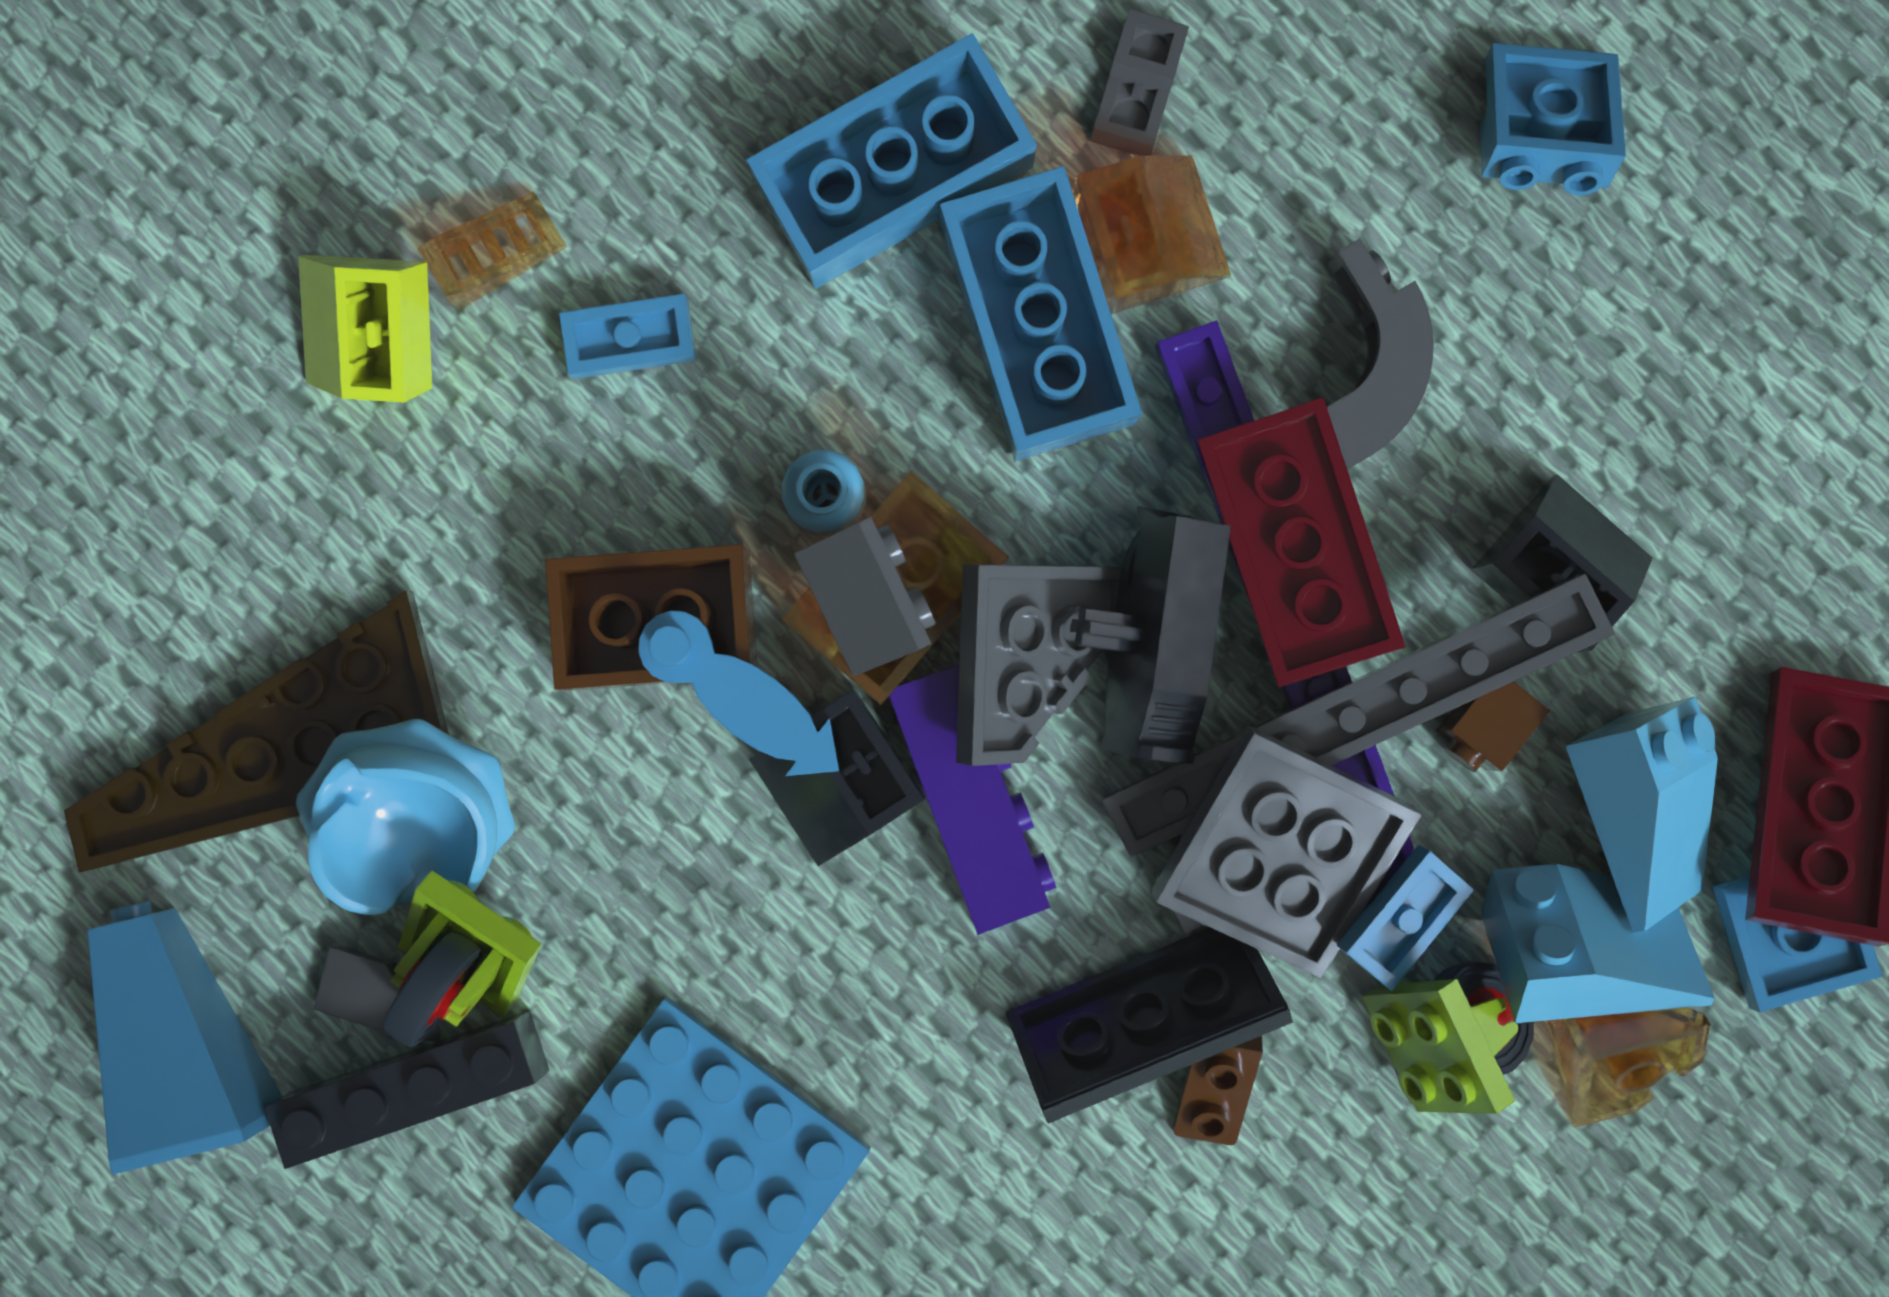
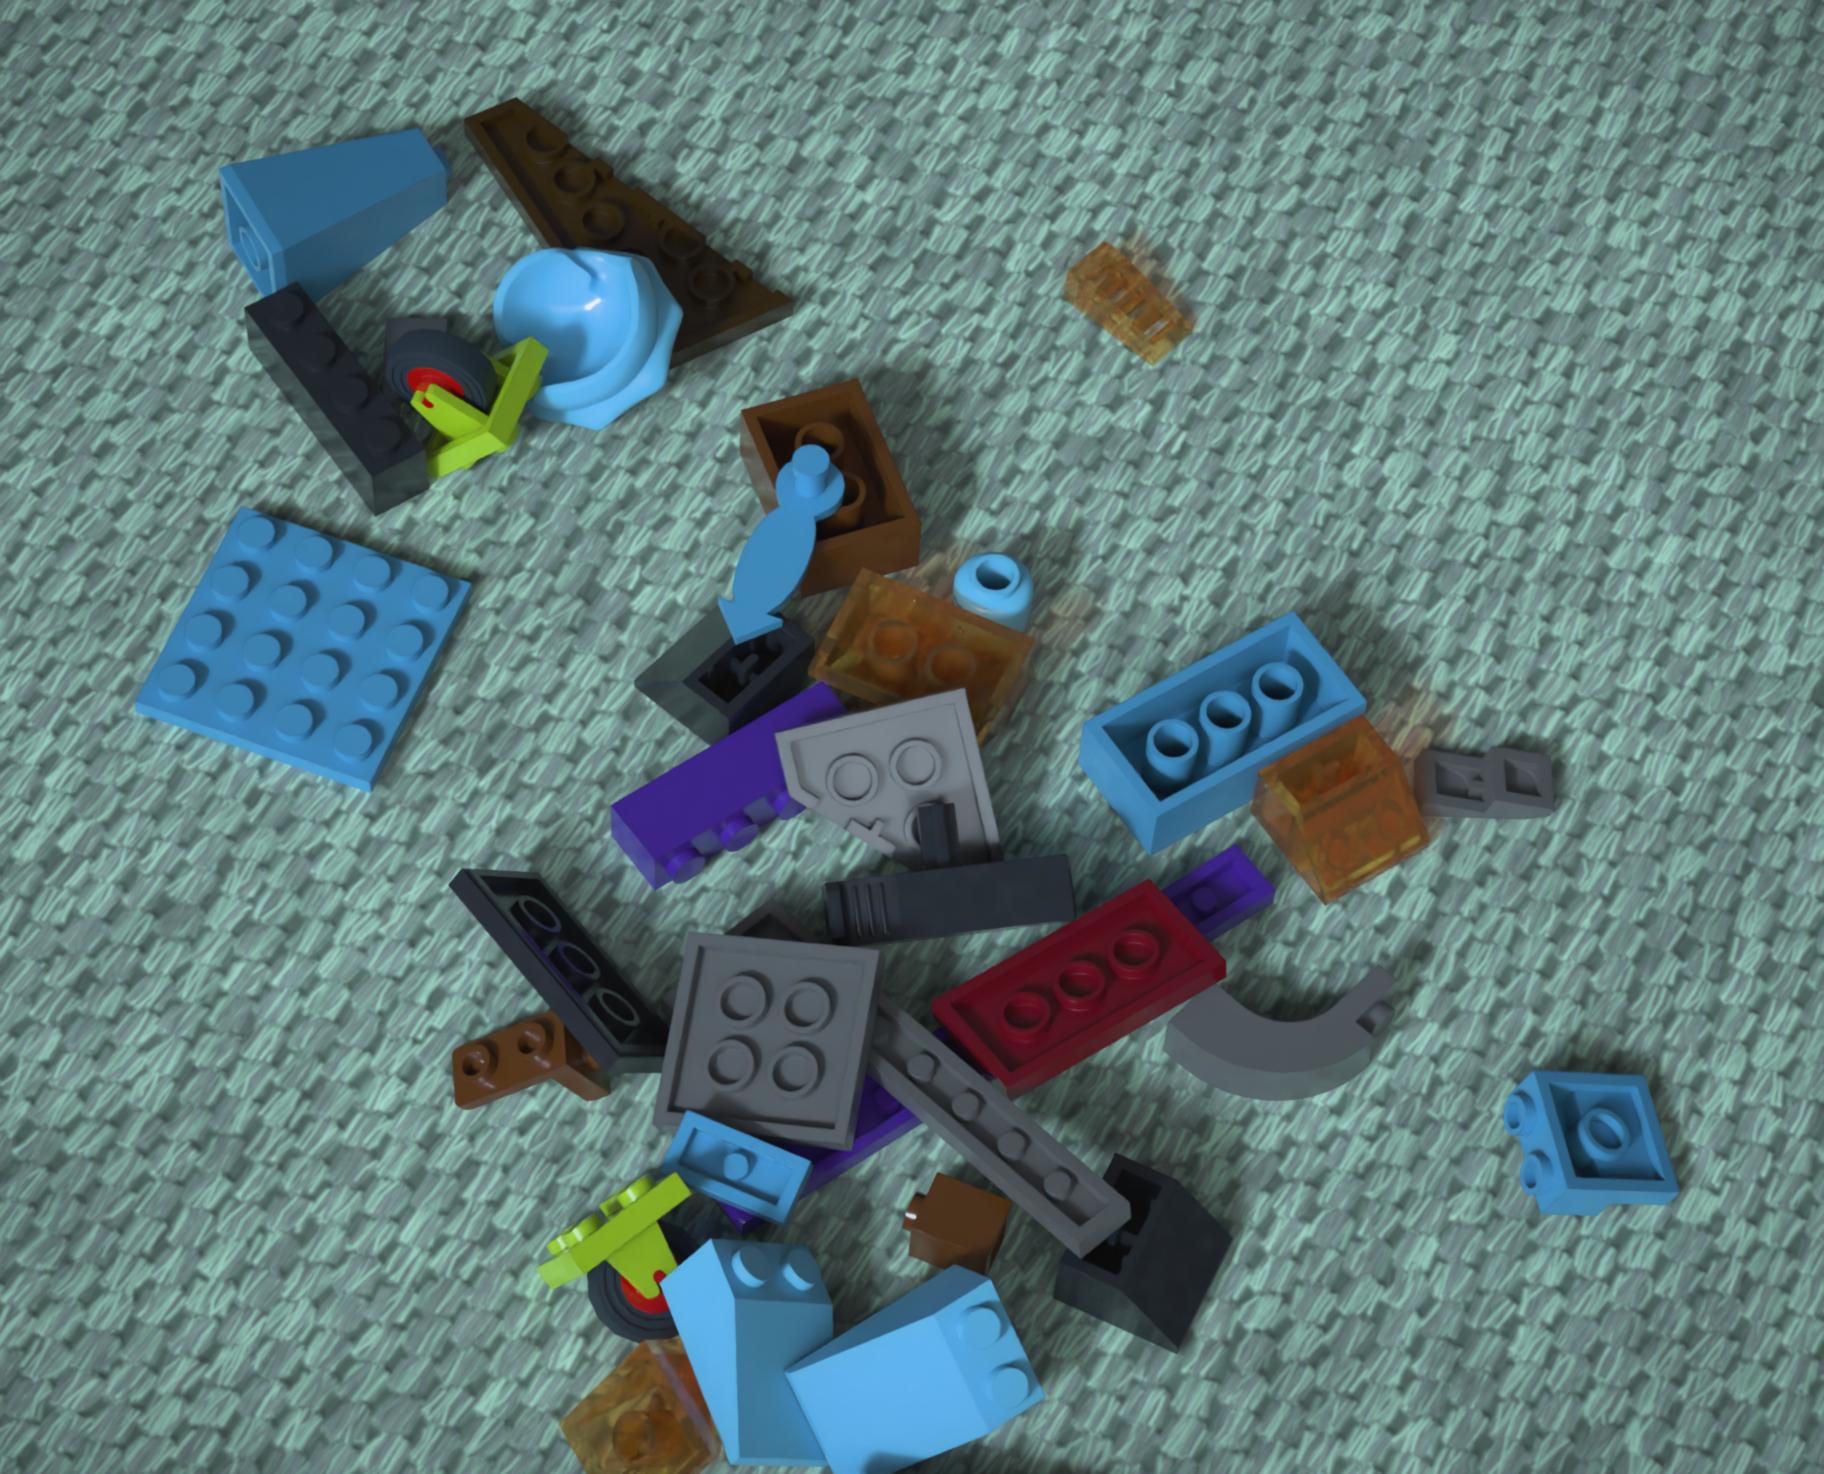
camera: 70 degrees right, 30 degrees down
(366, 327) = (1022, 223): neon yellow slope -> none
(628, 336) = (1085, 423): dark azure plate -> none
(865, 597) = (907, 607): dark grey slope -> none
(892, 159) = (1293, 547): dark azure brick -> none

